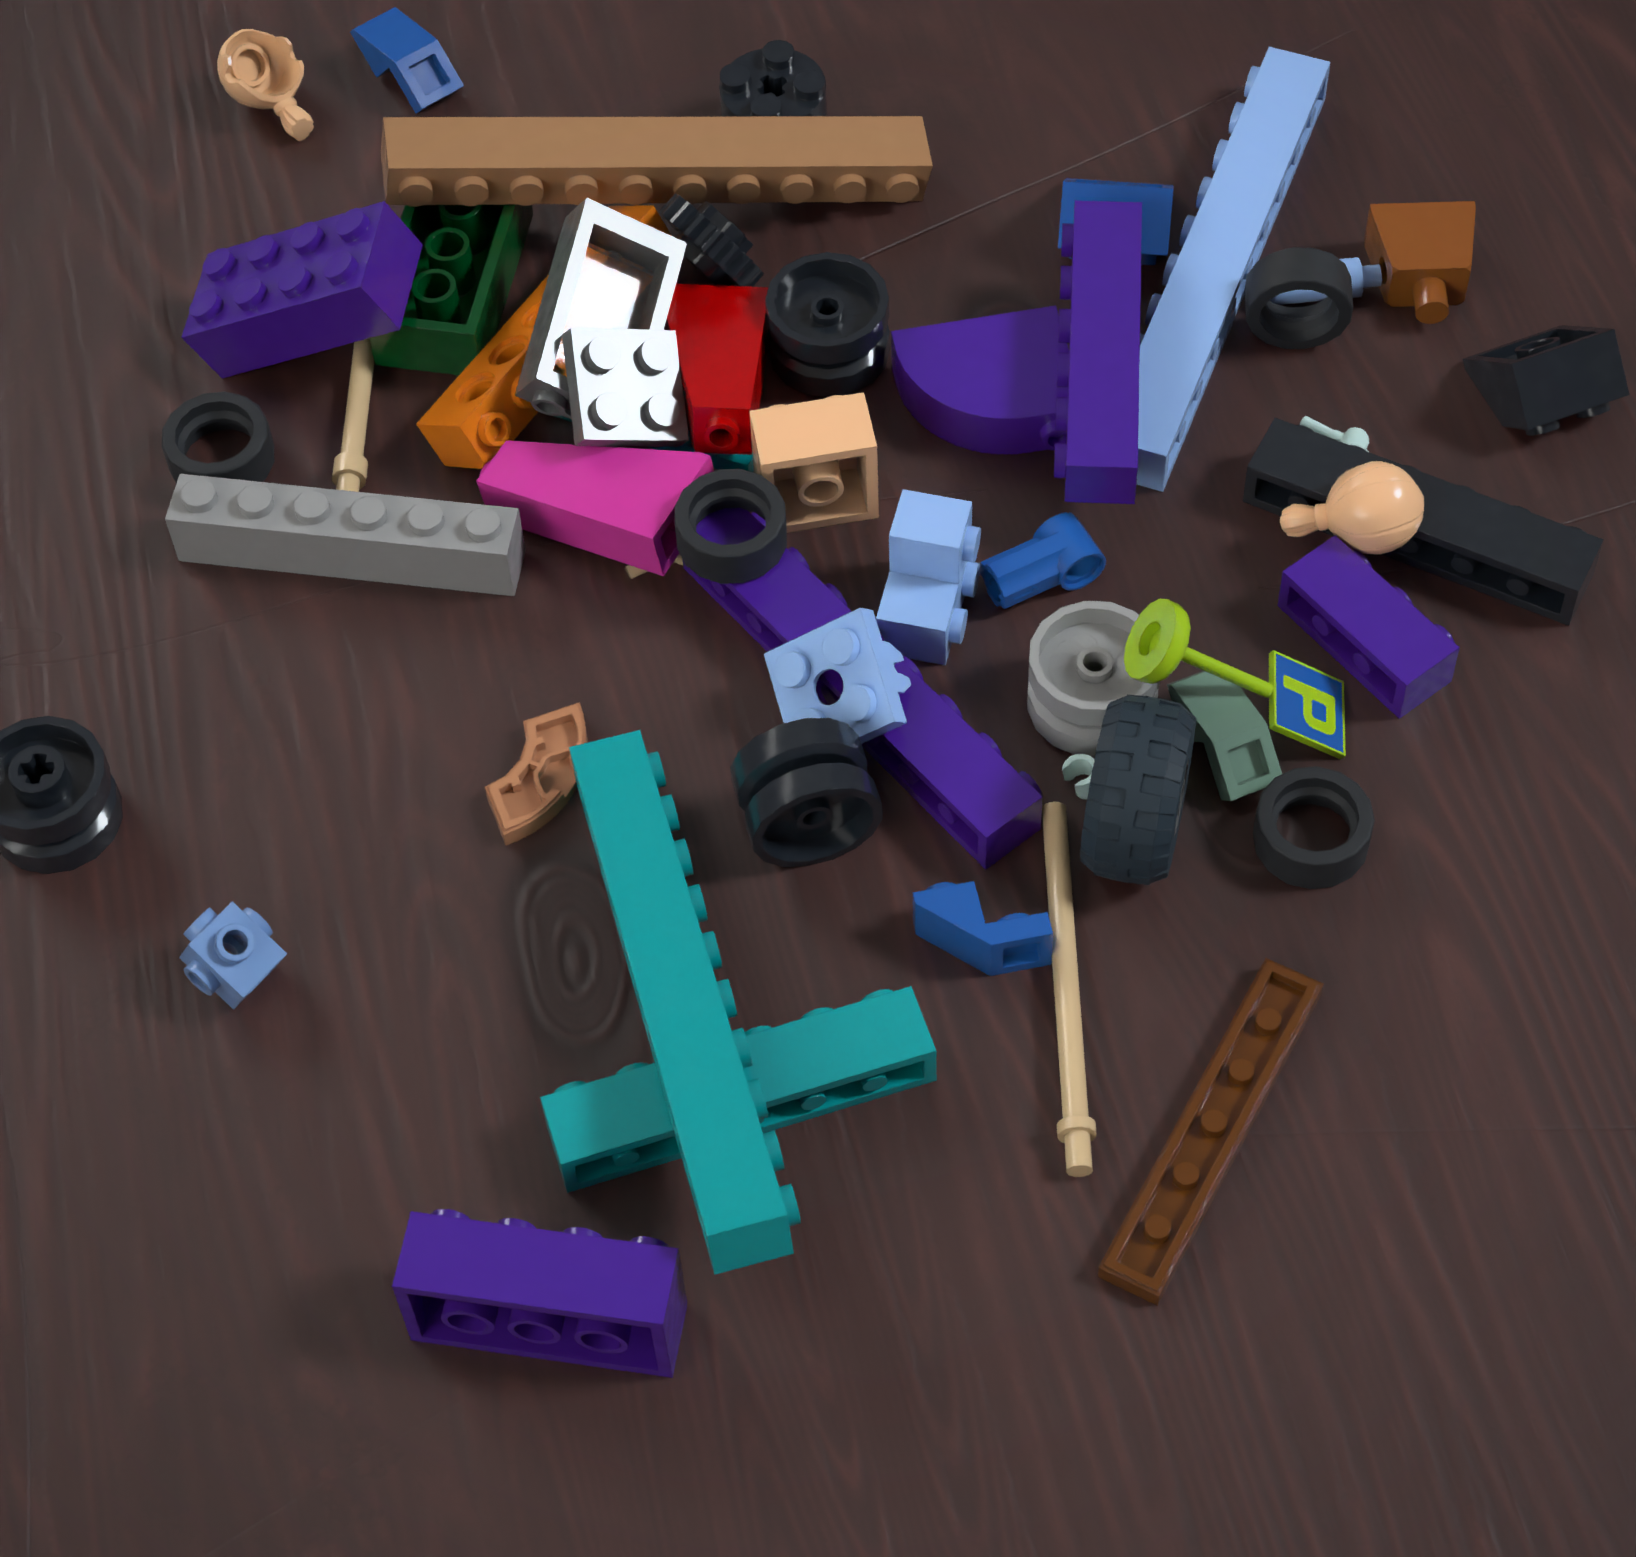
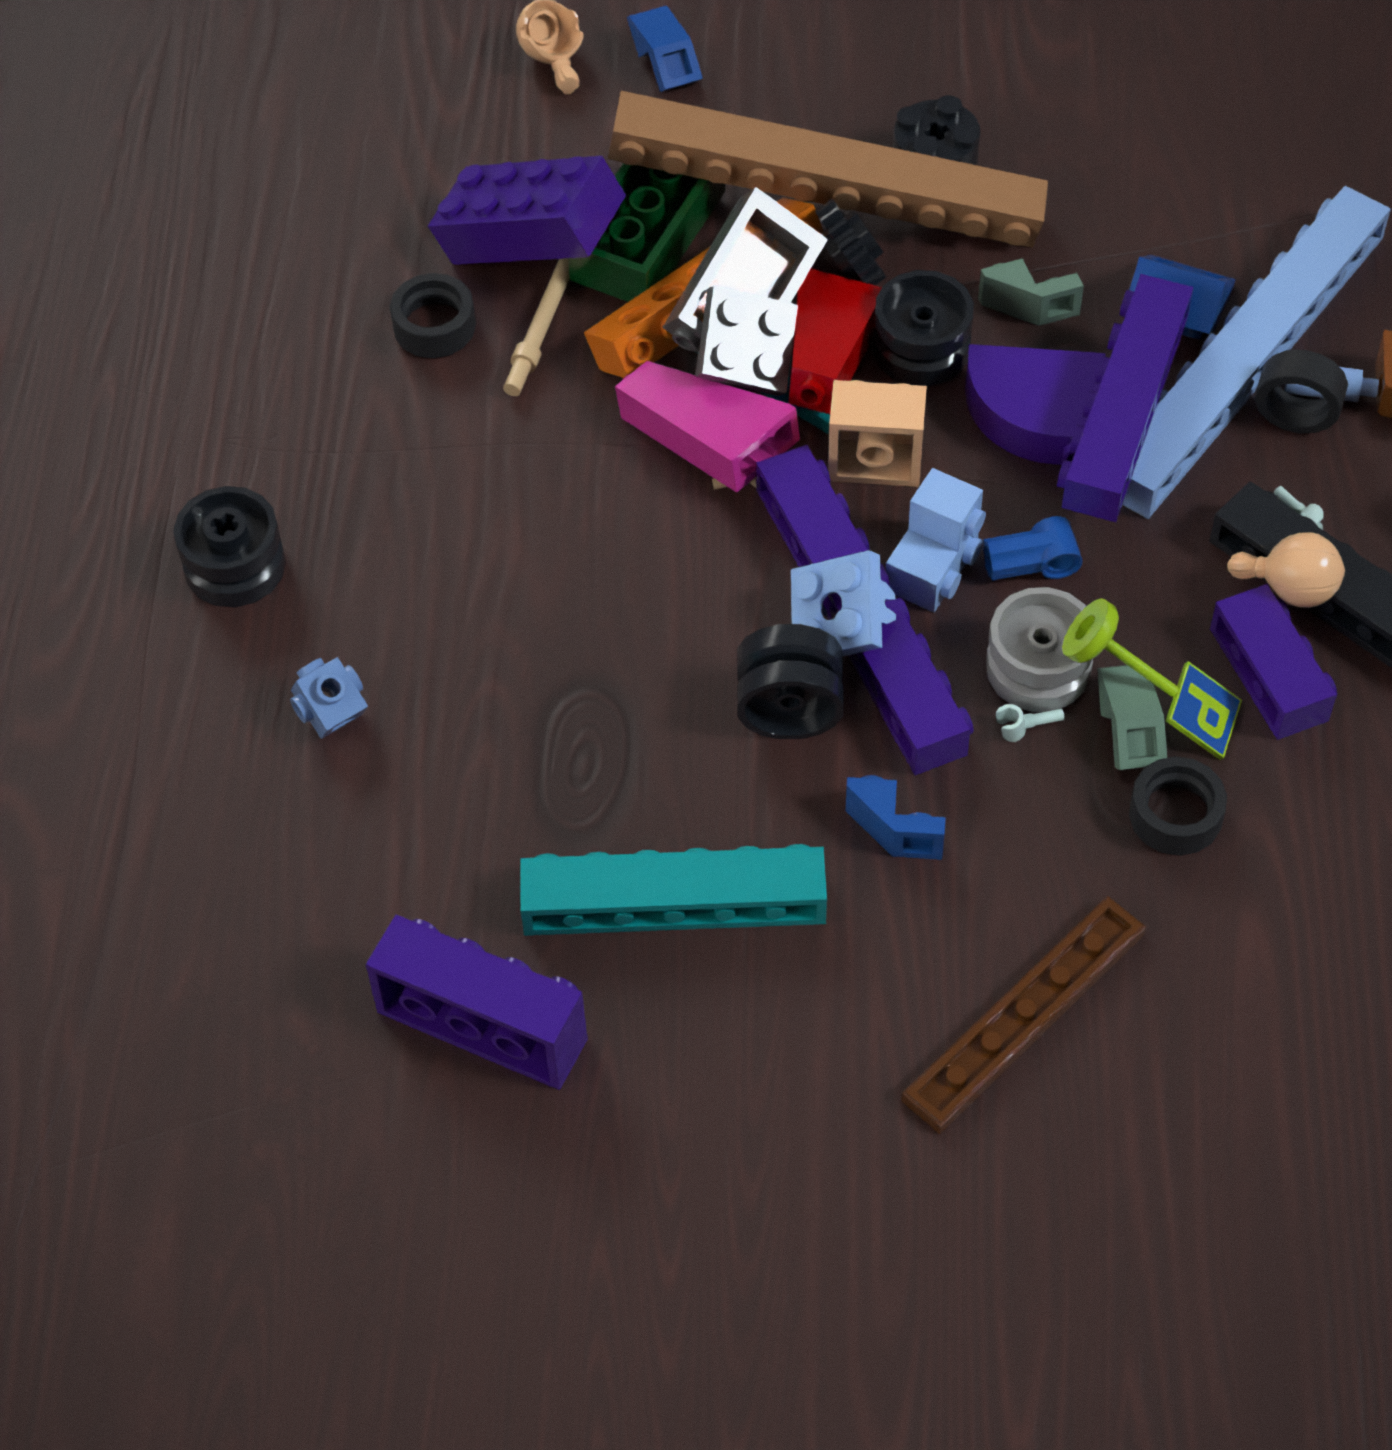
camera: 15 degrees right, 0 degrees up
(346, 534) = (508, 405): light grey brick -> none
(542, 777) = (602, 621): nougat tile -> none
(684, 1007) = (645, 816): teal brick -> none
(734, 561) = (792, 437): black tyre -> none
(923, 258) = (1013, 292): none -> sand green slope
(1076, 1127) = (919, 986): tan bar -> none
(1137, 789) = (1043, 741): black wheel -> none

